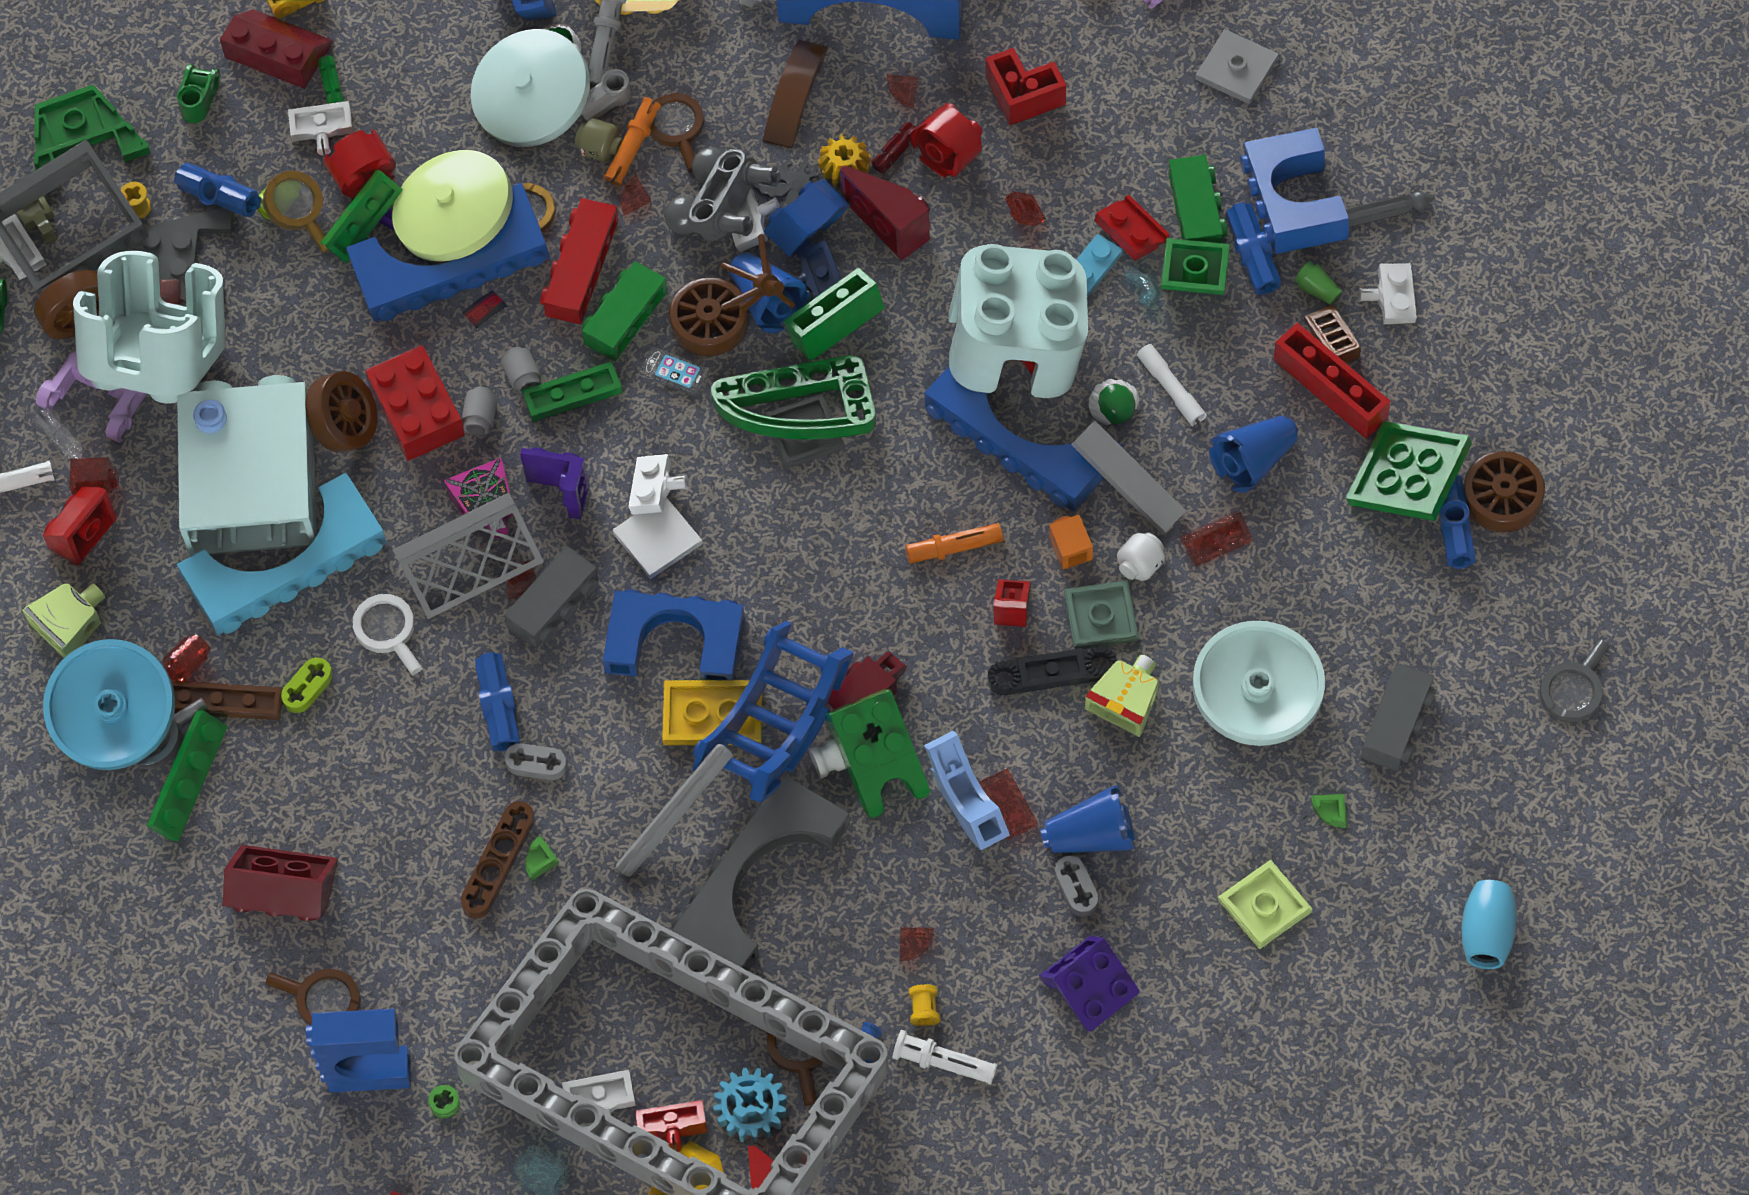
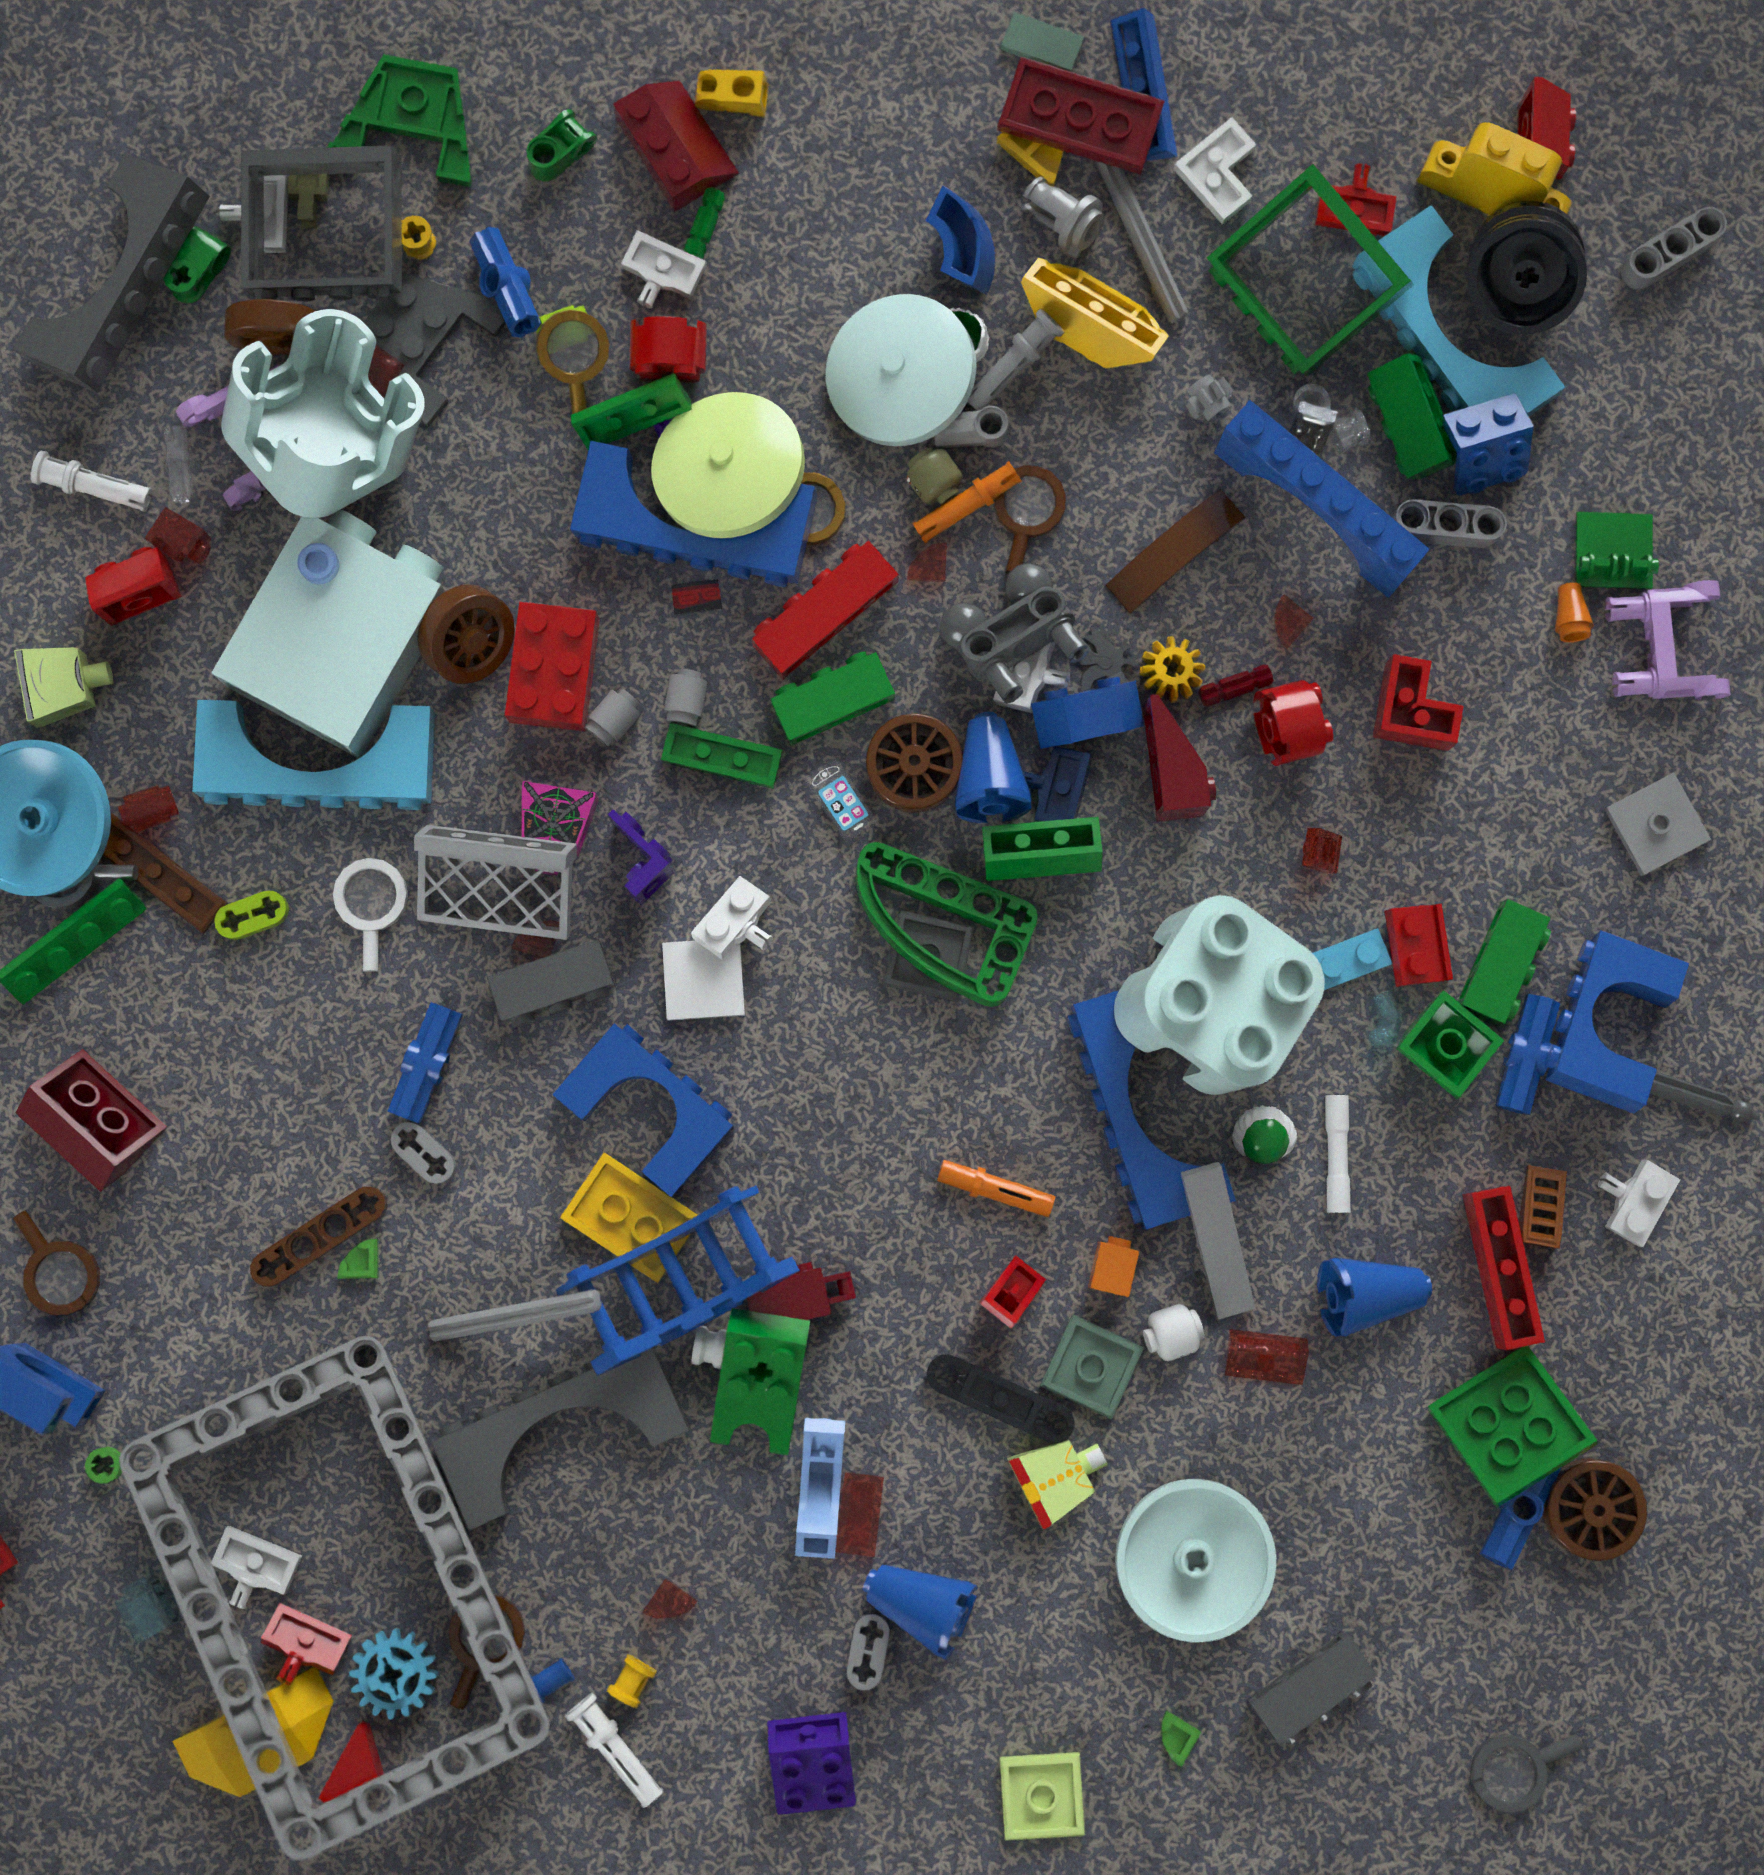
camera: 25 degrees right, 20 degrees up
(763, 284) = (979, 785): reddish brown plant -> none
(1317, 283) = (1567, 1138): bright green cone -> none

